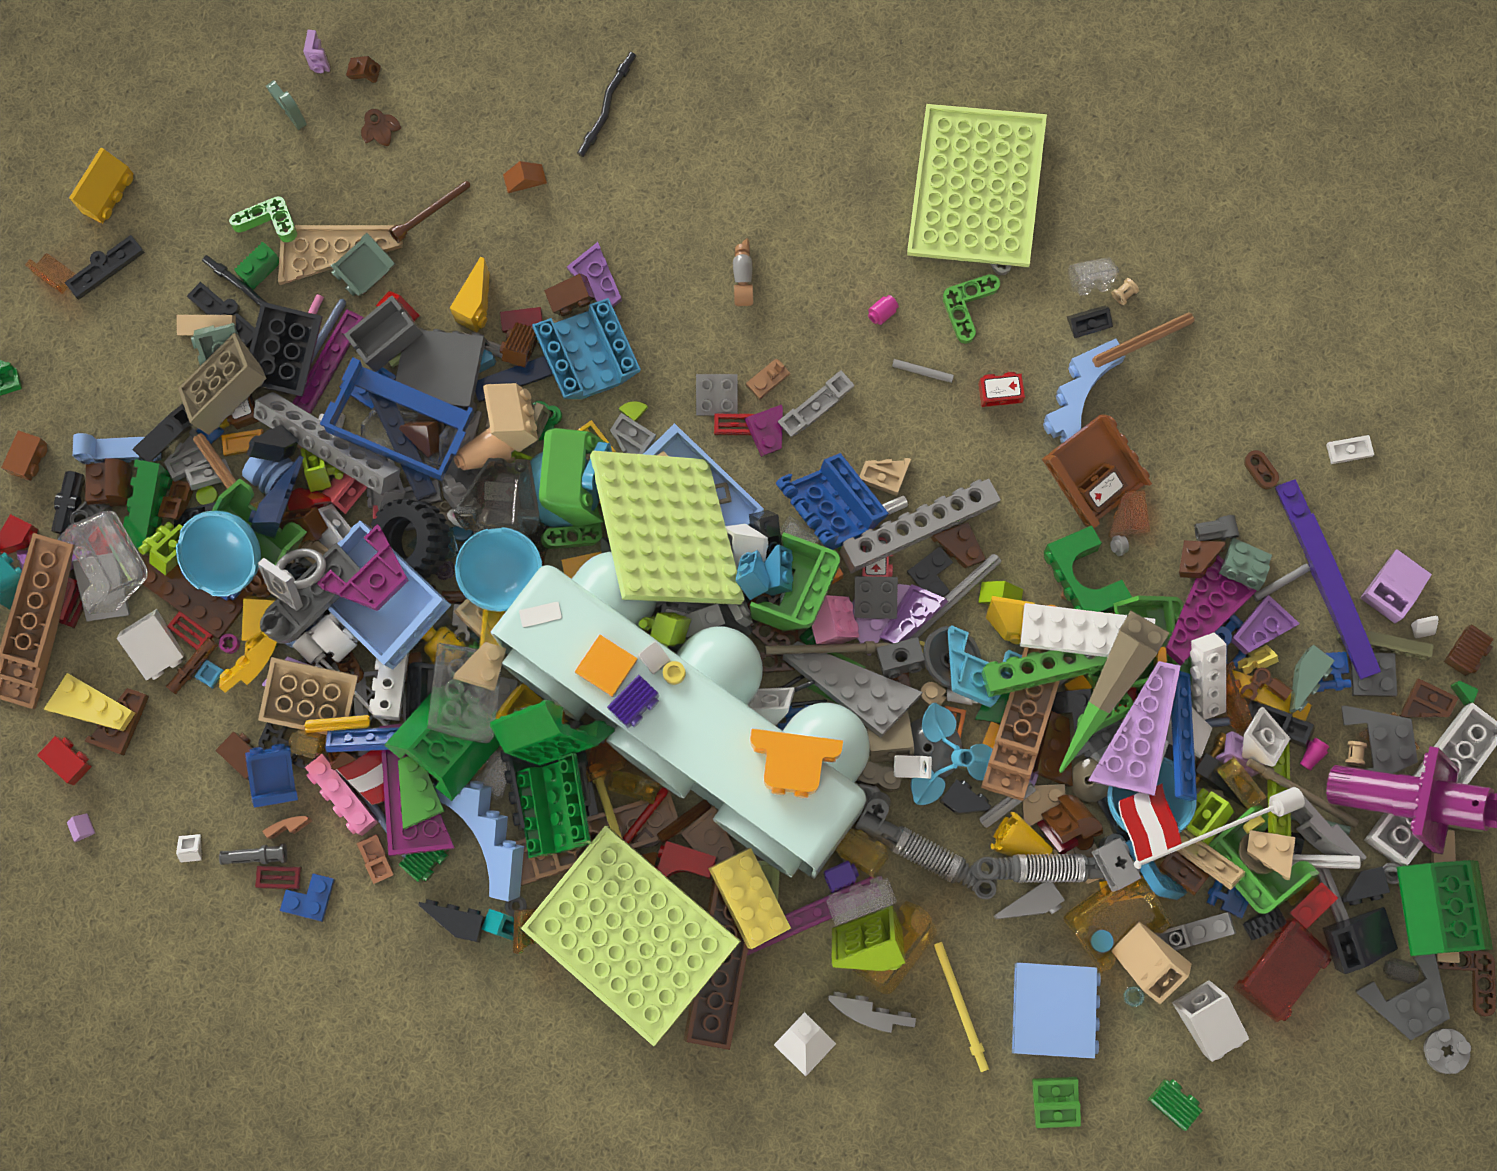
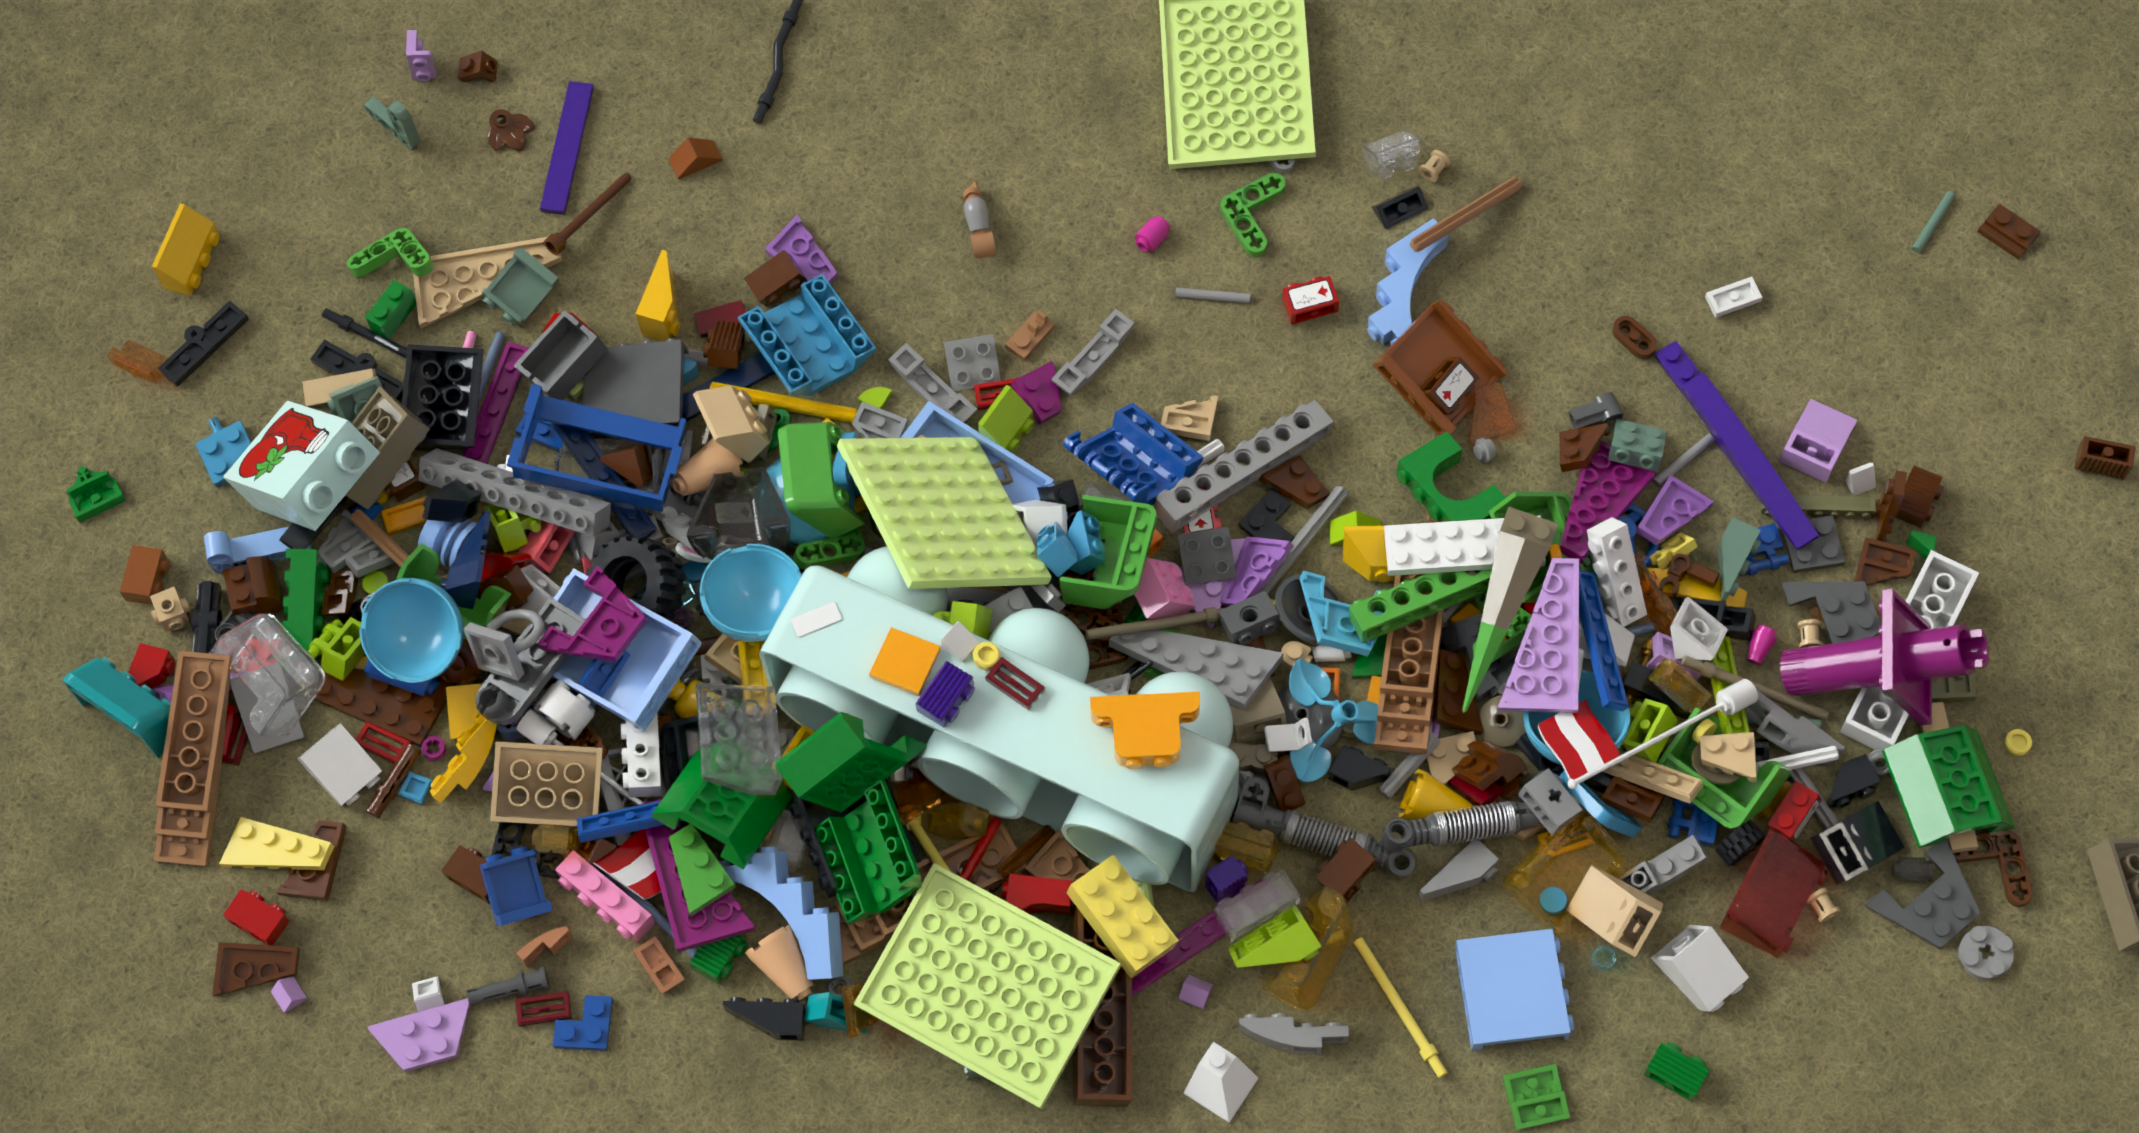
camera: 10 degrees left, 10 degrees down
(39, 489) = (170, 609): none -> tan brick
(55, 798) = (252, 965): none -> reddish brown wing
(109, 364) = (223, 448): none -> dark azure plate
(159, 390) = (301, 465): none -> light aqua brick
(180, 882) = (424, 1035): none -> lavender wing
(340, 723) = (587, 808): yellow axle -> none
(363, 617) = (601, 674): none -> blue plate
(423, 150) = (566, 148): none -> dark purple tile
(472, 878) = (783, 962): none -> light nougat cone
(482, 667) = (754, 703): tan wing -> none
(565, 404) = (796, 404): none -> yellow axle
(679, 408) = (929, 385): none -> light grey slope
(706, 715) = (1032, 696): none -> dark red tile
(735, 451) = (1007, 420): none -> lime slope
(799, 961) = (1195, 991): none -> lavender slope
(902, 803) = (1284, 784): none -> reddish brown plate
(939, 889) = (1346, 869): none -> reddish brown brick
(1322, 986) = (1823, 905): none -> tan bush
(1445, 657) = (1889, 504): none -> reddish brown wing

